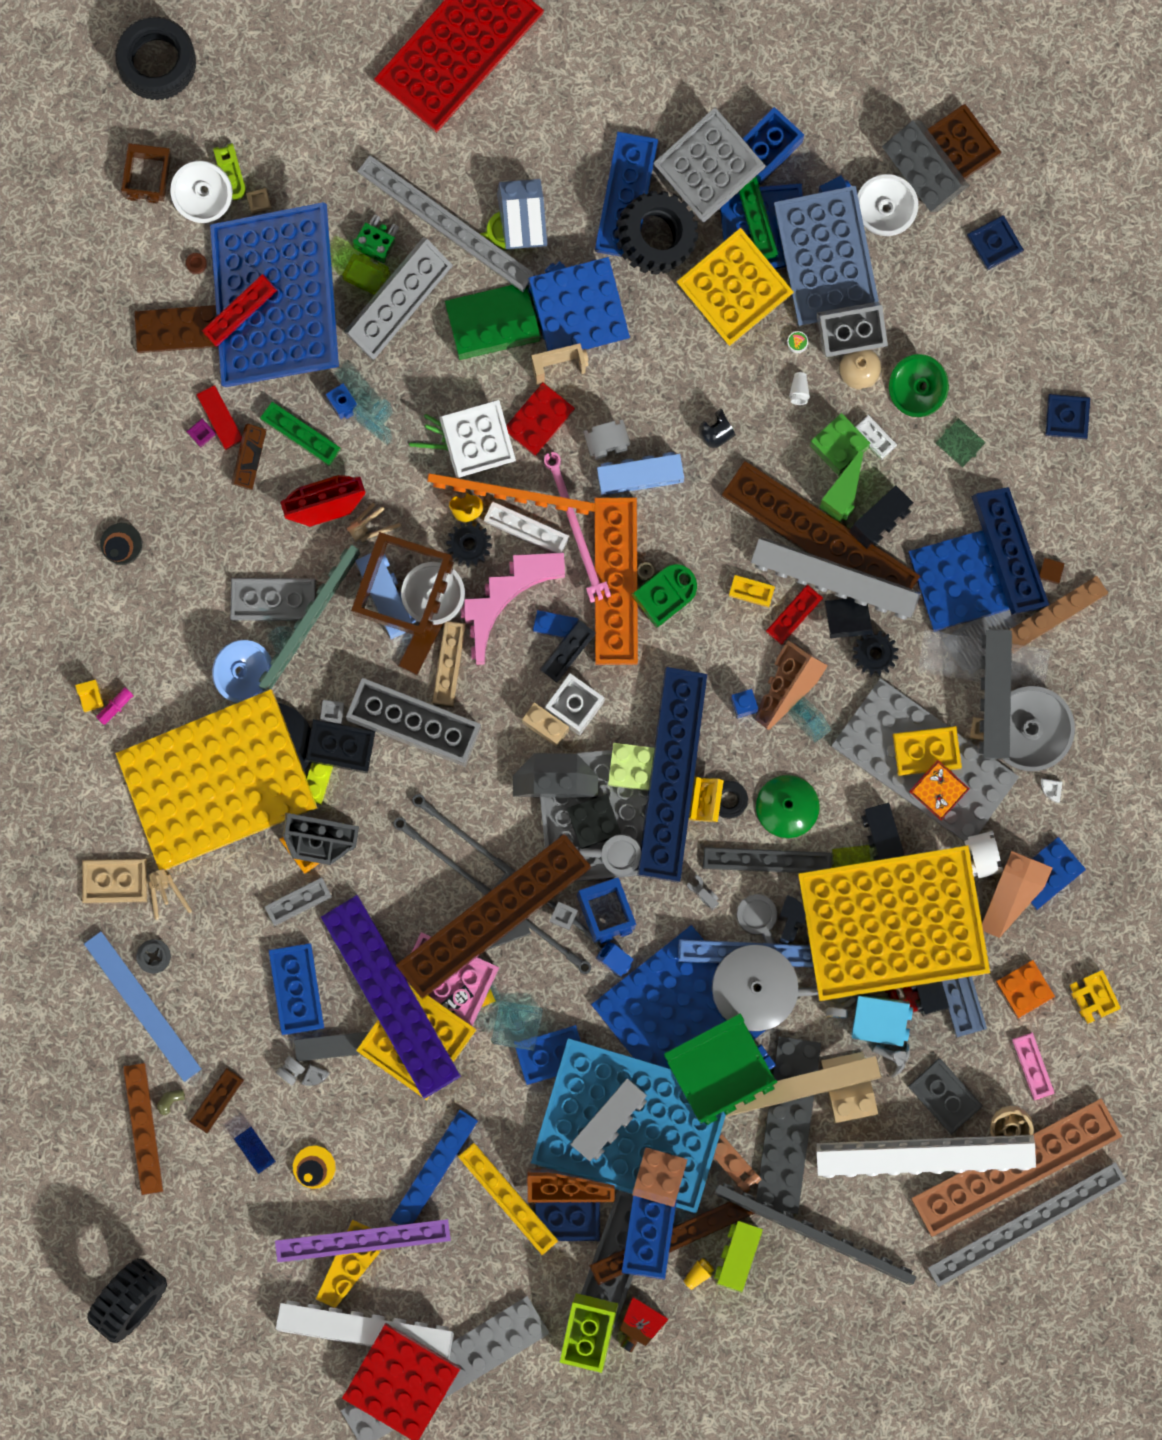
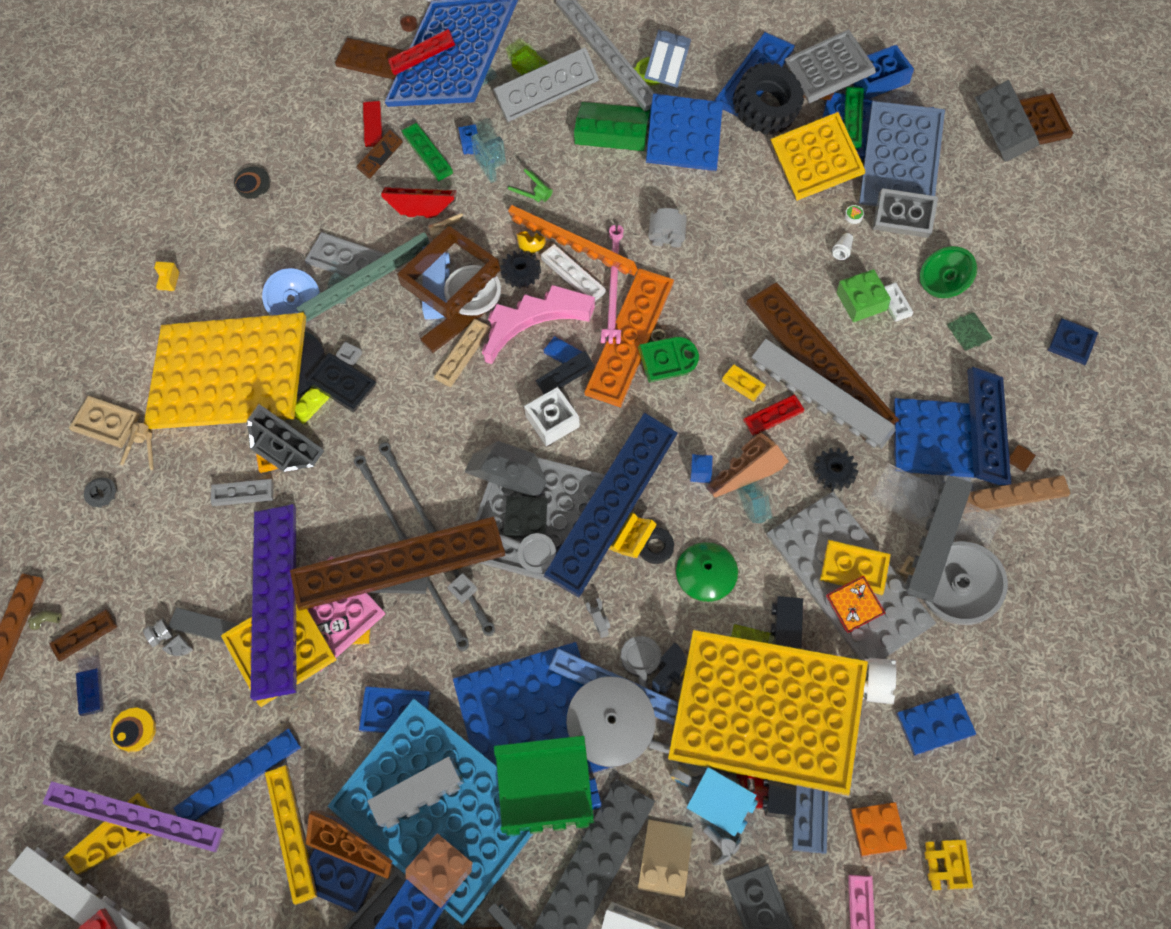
camera: 25 degrees right, 15 degrees down
(114, 706) = (180, 291): dark pink axle -> none
(142, 1006) = (68, 532): medium blue tile -> none
(201, 433) = (353, 129): magenta tile -> none
(296, 989) = (201, 565): blue plate -> none
(369, 245) = (547, 46): green piece -> none
(413, 722) = (410, 383): light grey brick -> none
(477, 439) = (562, 193): white plate -> none
(517, 1025) = (375, 671): clear light blue tile -> none
(539, 419) = (618, 202): red plate -> none
(545, 724) = (520, 425): tan brick -> none
(557, 356) = (651, 158): tan panel -> none
(600, 890) = (503, 579): blue window -> none
(614, 959) = (491, 645): blue brick -> none
(631, 766) = (577, 483): yellowish green plate -> none
(640, 474) = (684, 264): light blue brick -> none
(718, 433) = (761, 254): black helmet -> none
(734, 1164) = (522, 890): nougat plate -> none
(765, 860) = (665, 609): dark grey tile -> none
(814, 1083) = (630, 838): tan tile -> none
(841, 496) = (851, 329): bright green slope -> none
(847, 618) = (821, 431): black tile -> none
(860, 369) = (901, 247): tan cylinder -> none
(881, 517) = (880, 360): black brick -> none
(890, 192) = (970, 133): white dish -> none
(995, 242) = (1047, 196): dark blue tile -> none
(1017, 888) = (903, 723): nougat wedge -> none
(1052, 789) = (964, 647): white tile -> none

